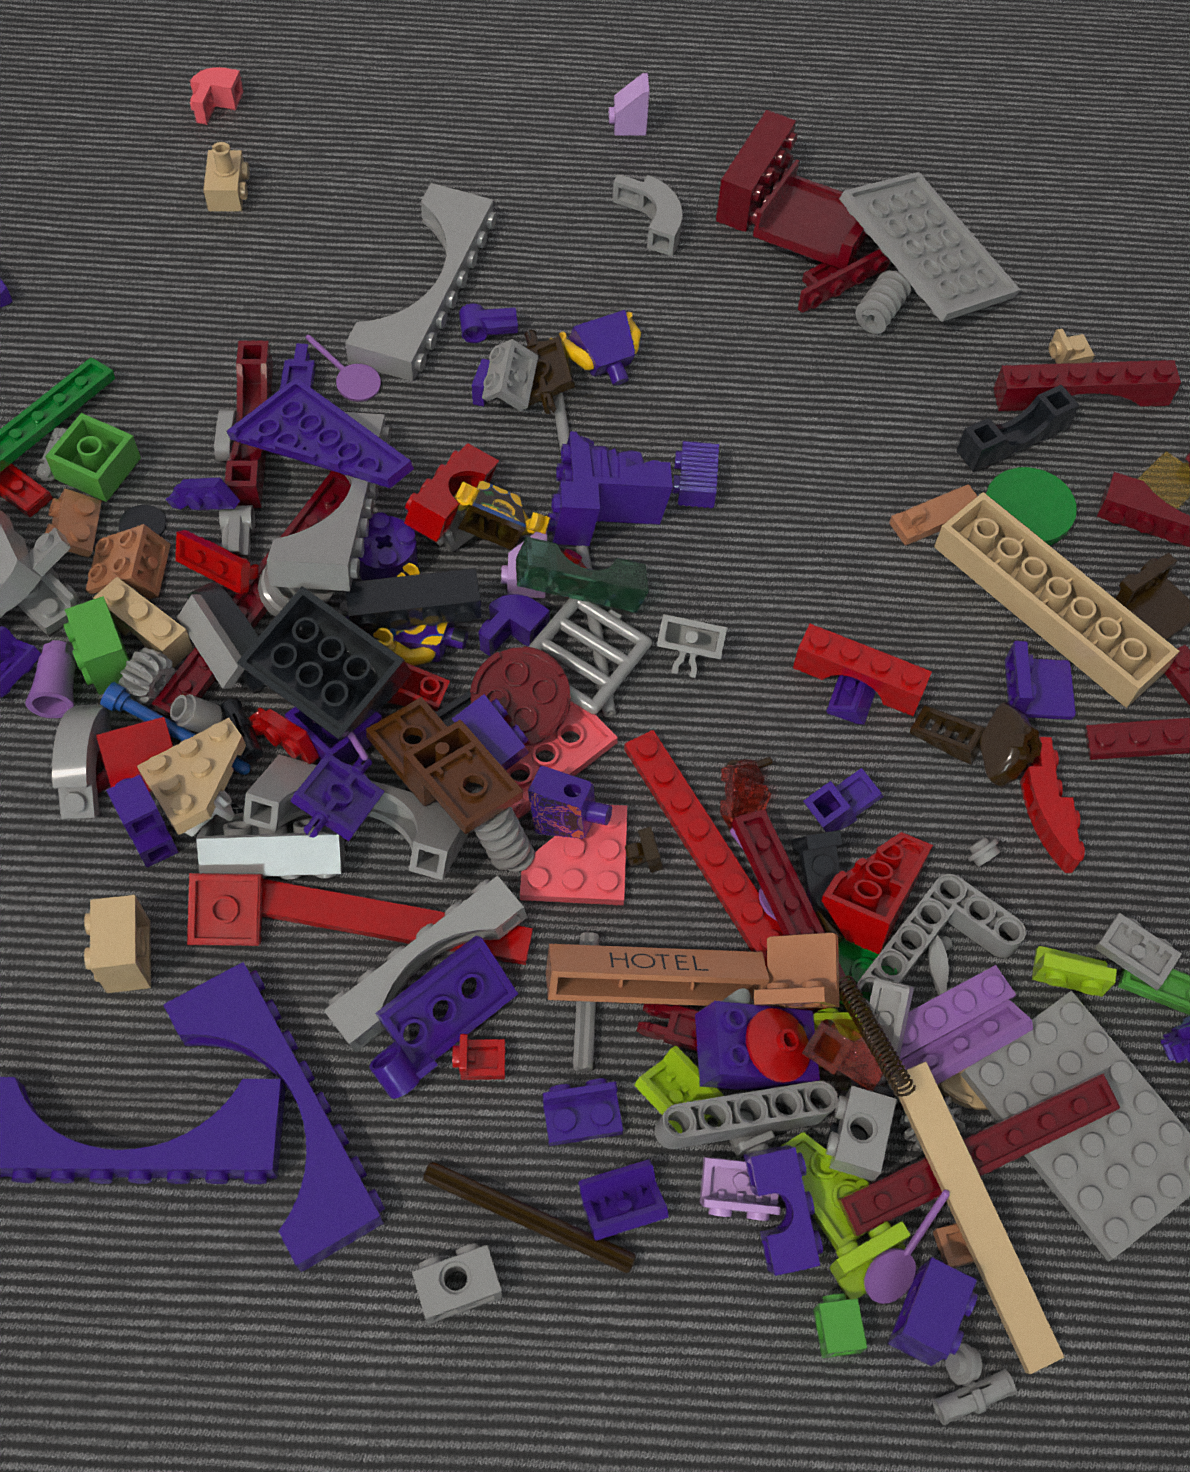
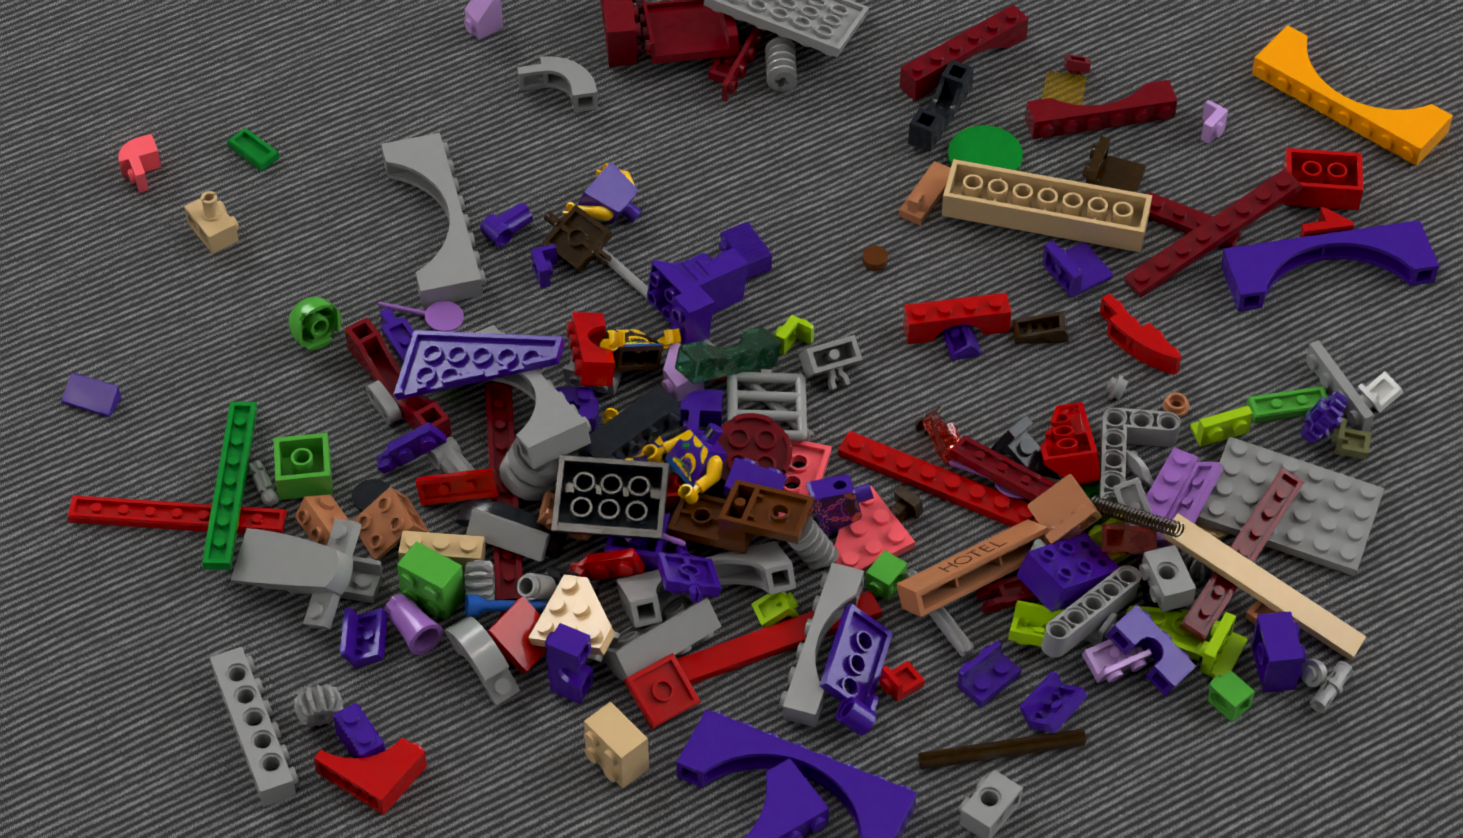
camera: 30 degrees left, 10 degrees down
(224, 320) = (314, 322): none -> bright green cylinder
(325, 133) = (253, 149): none -> green tile
(417, 888) = (775, 607): none -> lime bracket
(453, 672) = (694, 457): none -> torso
(510, 374) = (562, 250): light grey bracket -> none
(560, 921) = (885, 574): none -> bright green brick
(674, 586) = (791, 331): none -> lime bracket
(769, 1052) = (1082, 557): red dish -> none
(827, 554) = (875, 258): none -> reddish brown tile
(839, 805) = (1008, 403): dark purple brick -> none
(895, 1268) = (1237, 645): medium lavender piece -> none
(1008, 744) = (1086, 312): dark brown piece -> none
(1042, 905) = (1178, 400): none -> nougat plate
(1070, 349) = (933, 33): tan bracket -> none
(1138, 951) = (1252, 391): light grey bracket -> none

